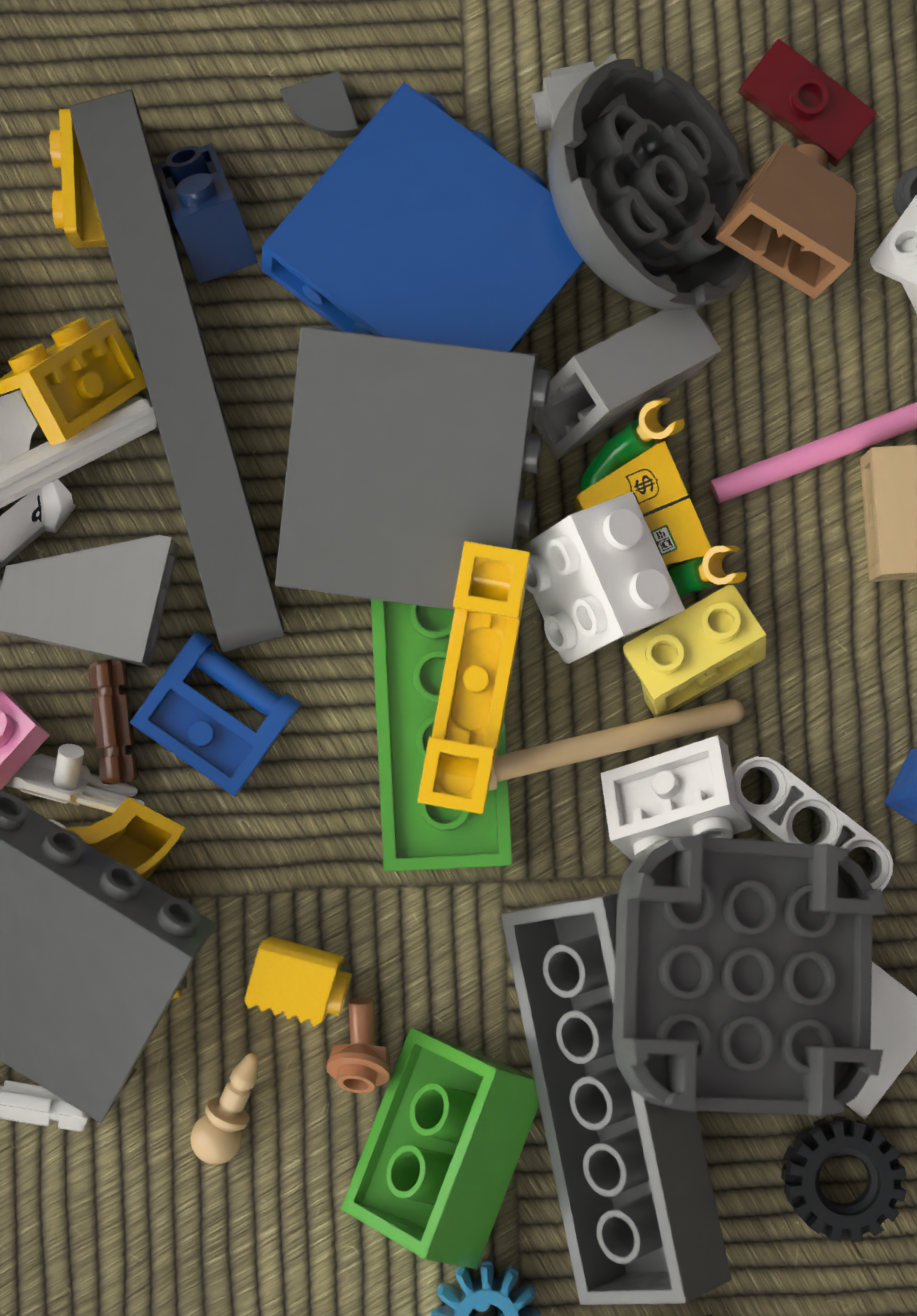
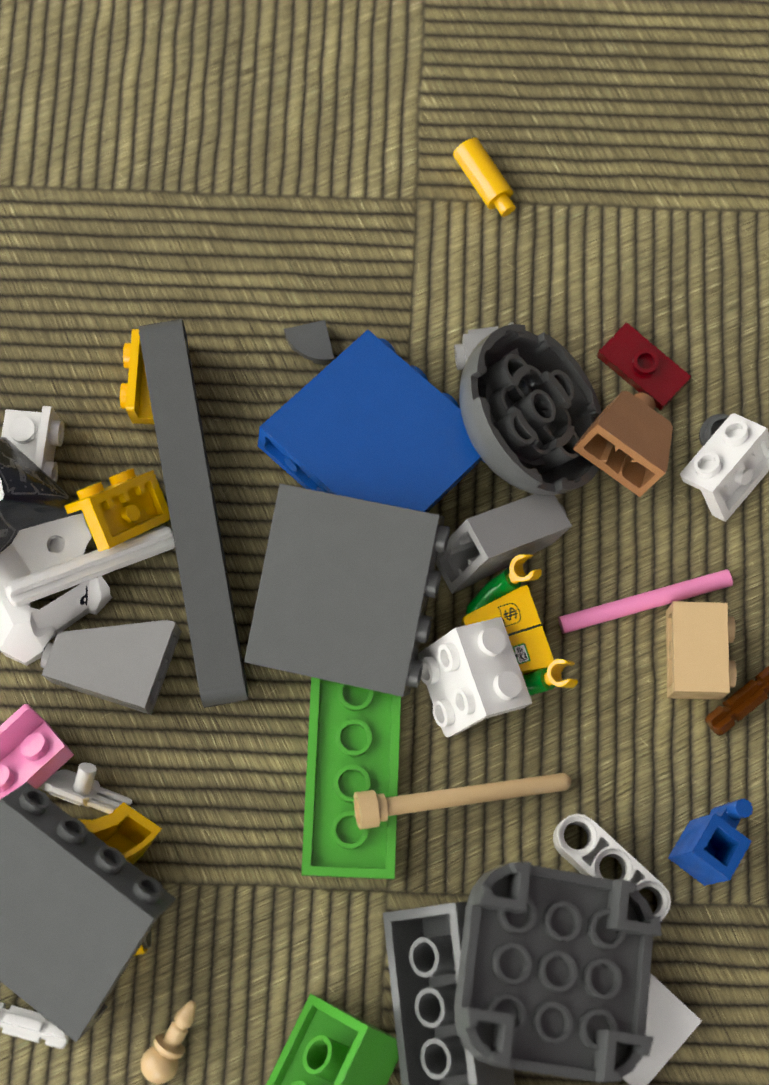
camera: 10 degrees right, 10 degrees down
(112, 721) = (120, 750): reddish brown axle -> none
(202, 730) = (184, 763): blue plate -> none
(205, 212) = (223, 405): dark blue slope -> none
(297, 981) = (230, 948): yellow brick -> none
(361, 1063) = (271, 1017): nougat plate -> none
(475, 677) = (379, 738): yellow slope -> none
(673, 797) = (515, 835): white bracket -> none
(696, 650) = (539, 735): light yellow bracket -> none

